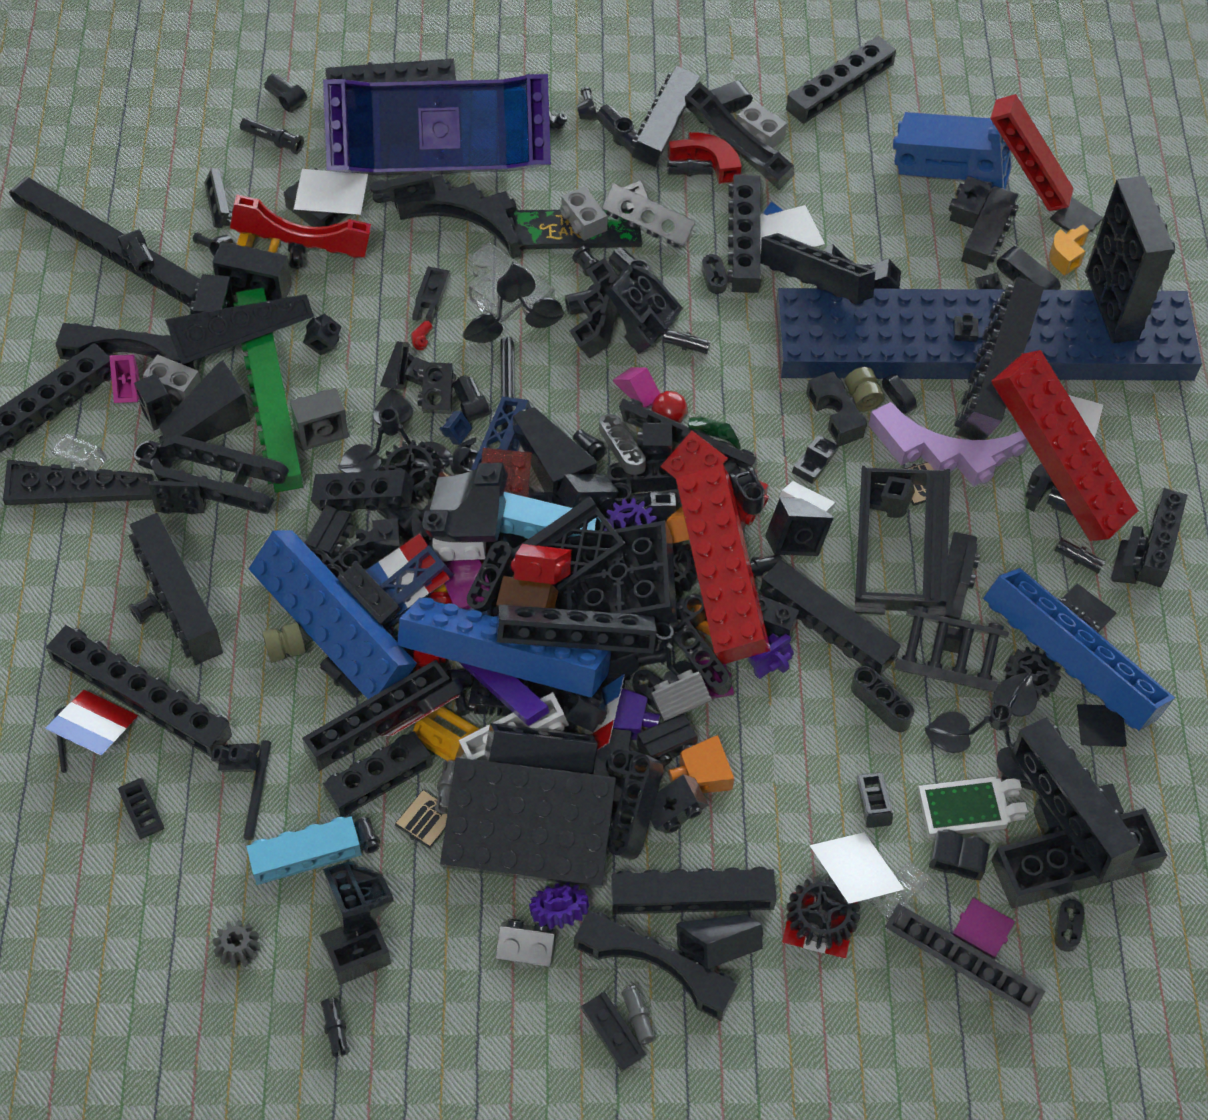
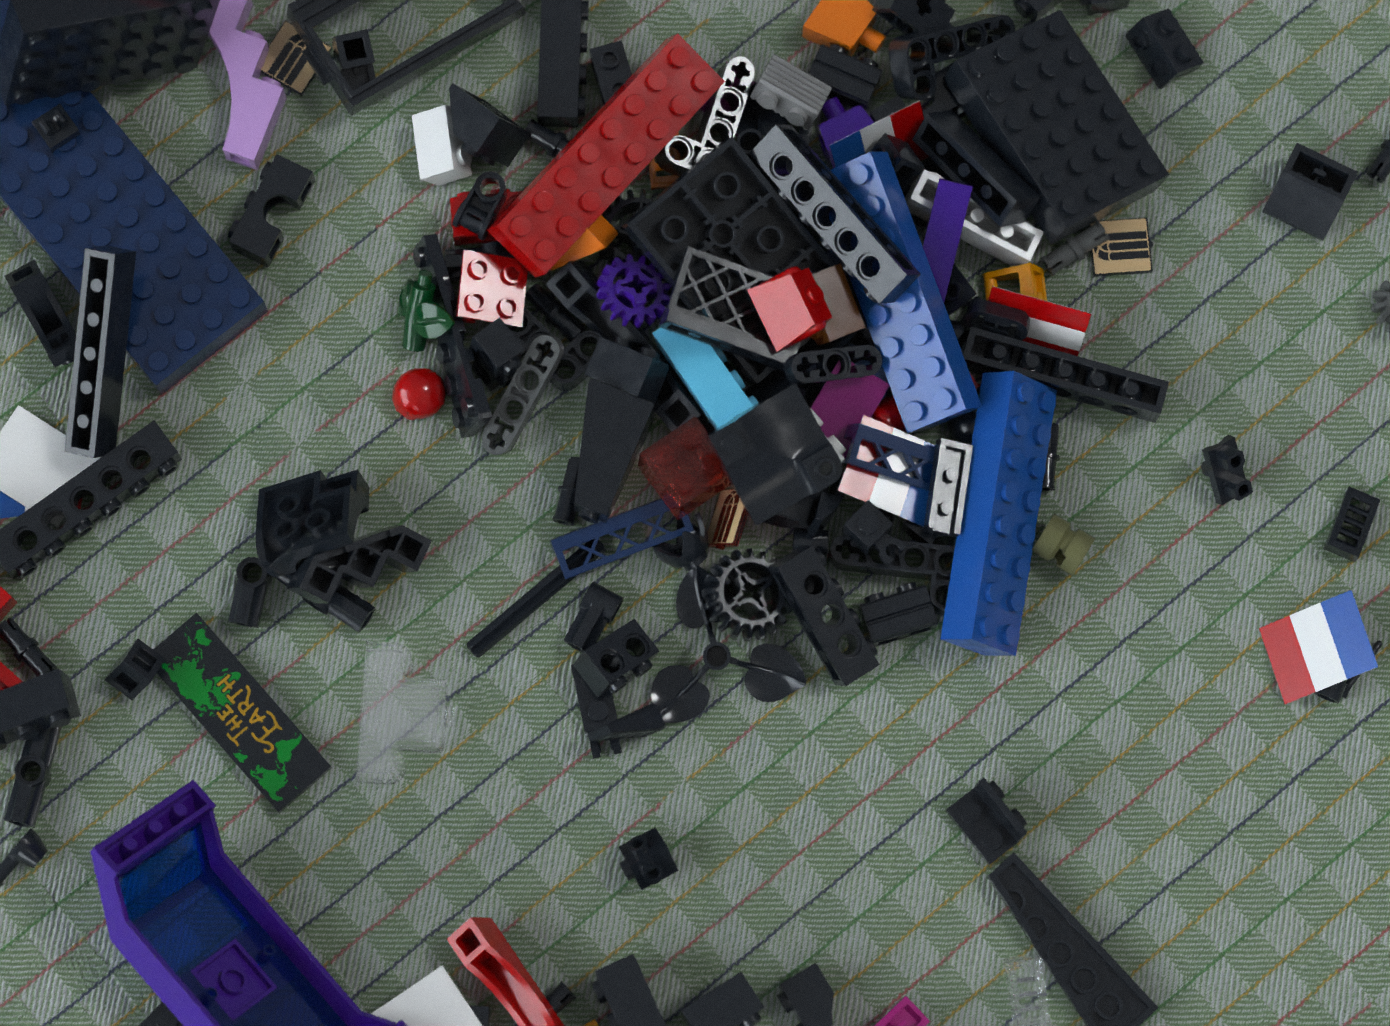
camera: 130 degrees left, 20 degrees up
(63, 651) = (1231, 523): black brick -> none
(145, 608) = (1146, 728): black bush -> none
(153, 400) = (903, 955): black brick -> none
(162, 456) = (971, 877): black piece -> none
(174, 589) = (1105, 705): black brick -> none
(175, 377) = (842, 977): light grey brick -> none
(209, 409) = (864, 887): black slope -> none
(222, 328) = (748, 951): black wing -> none
(257, 790) = (1236, 430): black bar -> none
(270, 399) = (767, 857): green brick -> none
(303, 850) = (1258, 326): medium azure brick -> none
(319, 419) = (769, 749): dark grey brick -> none
(357, 894) = (1264, 223): black wedge -> none
(366, 834) = (1190, 282): black pin -> none
(370, 787) = (1139, 319): black brick -> none
(402, 187) = (368, 942): black hinge -> none
(418, 336) = (552, 754): red arm -> none
(431, 292) = (477, 794): black hinge -> none
(456, 427) = (645, 599): dark blue tile -> none
(467, 203) = (305, 813): black arch -> none
(513, 285) = (420, 678): black plant -> none
(557, 121) = (79, 881): black arm -> none
(559, 905) = (1109, 25): dark purple gear -> none
(583, 213) = (208, 701): light grey brick -> none
(584, 258) = (281, 652): black bush -> none
(590, 444) = (545, 439): black cone -> none
(619, 194) = (160, 621): brick -> none
(638, 385) = (416, 454): dark pink slope -> none
(686, 341) = (305, 444): black pin -> none
(710, 274) = (180, 500): black beam -> none
(775, 659) = (640, 49): dark purple hips -> none
(815, 459) = (358, 189): black slope -> none
(864, 389) = (221, 195): olive wheel -> none
(899, 393) = (192, 159): black beam -> none

